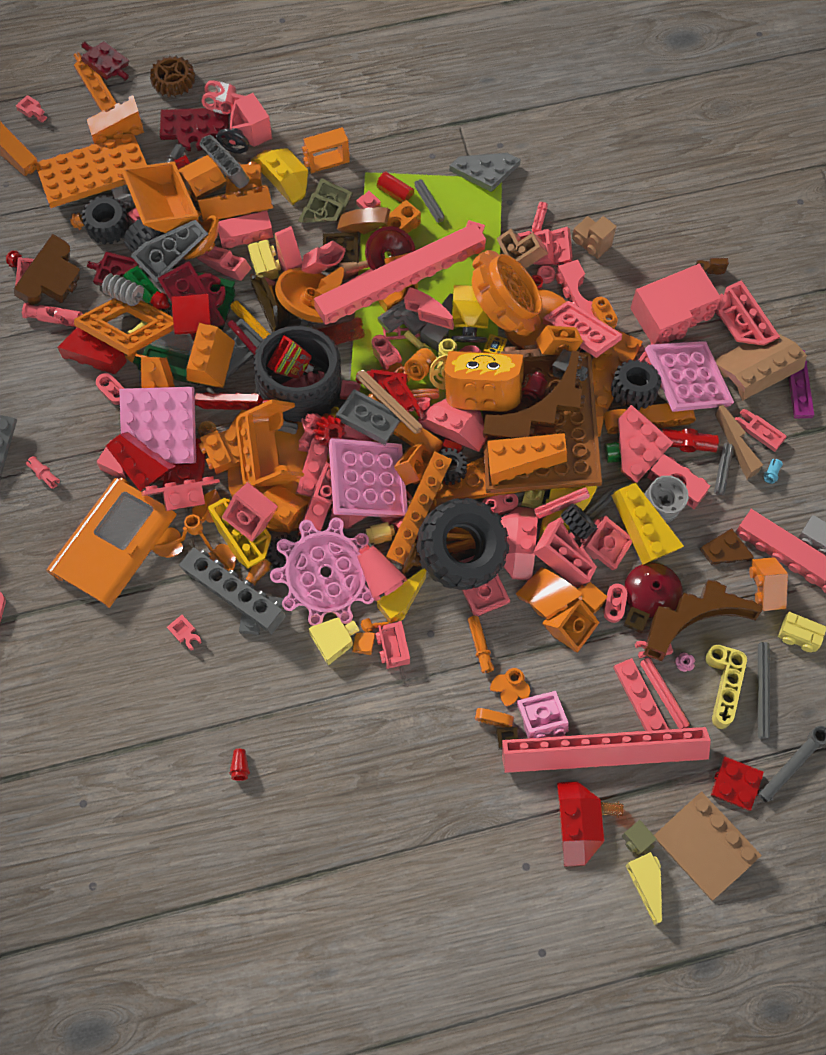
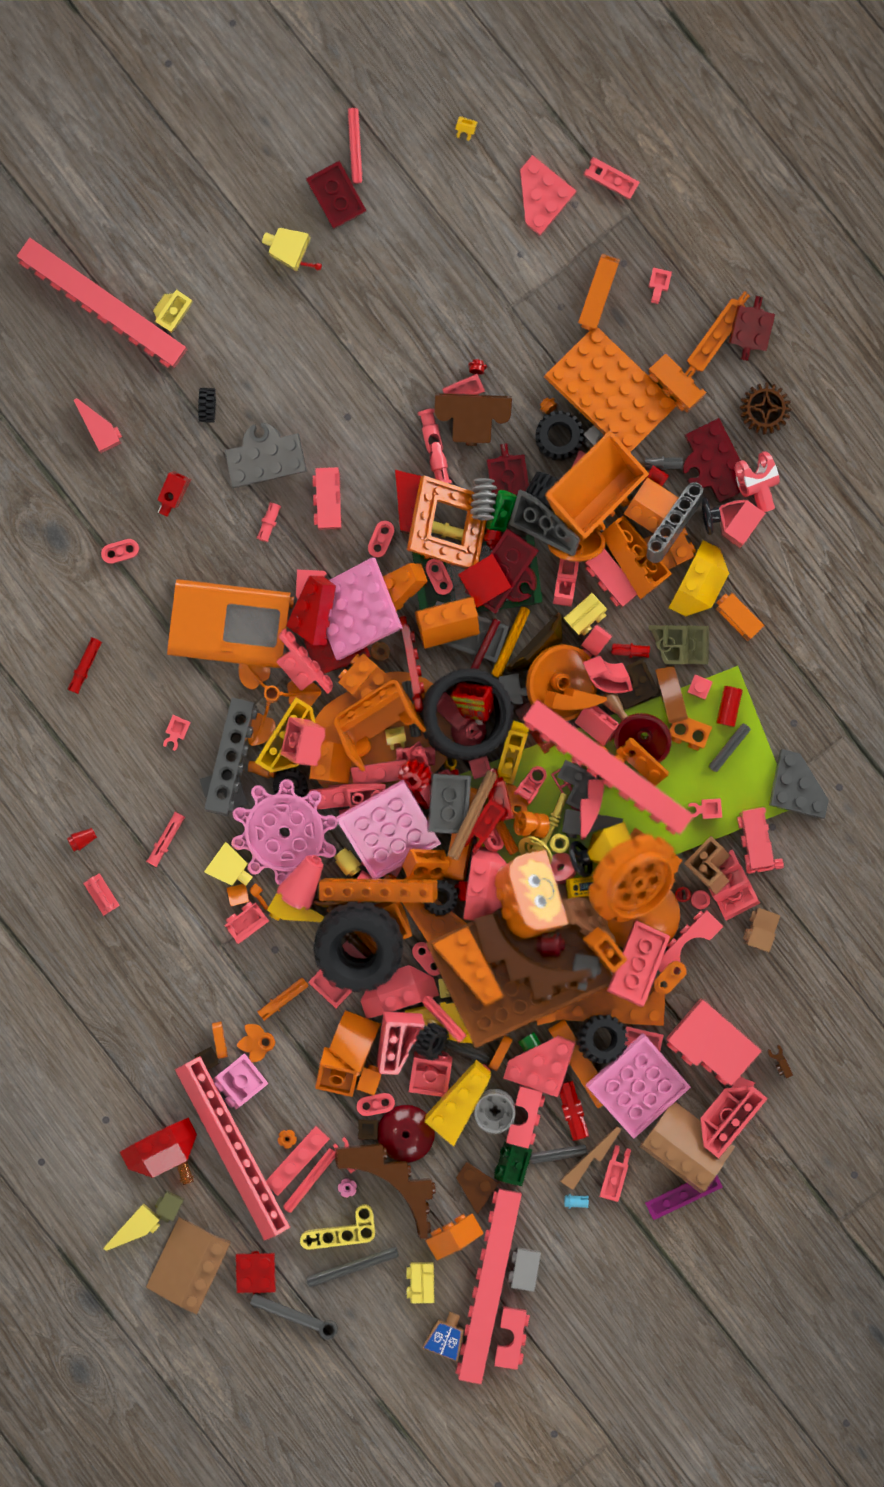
camera: 65 degrees right, 20 degrees up
(48, 413) = (327, 498): none -> coral wedge
(82, 695) = (82, 670): none -> red pin
(170, 352) = (439, 577): none -> coral plate
(266, 668) = (165, 839): none -> coral pin
(287, 442) = (395, 735): none -> light yellow tile
(301, 770) = (101, 894): none -> coral hinge
(311, 240) = (630, 650): none -> red axle
(350, 356) = (512, 752): none -> yellow slope
(513, 206) = (755, 838): none -> coral wedge
(612, 477) = (500, 1053): none -> orange beam
(616, 692) = (292, 1139): none -> orange plate
(717, 509) = (512, 1164): none -> dark green bracket

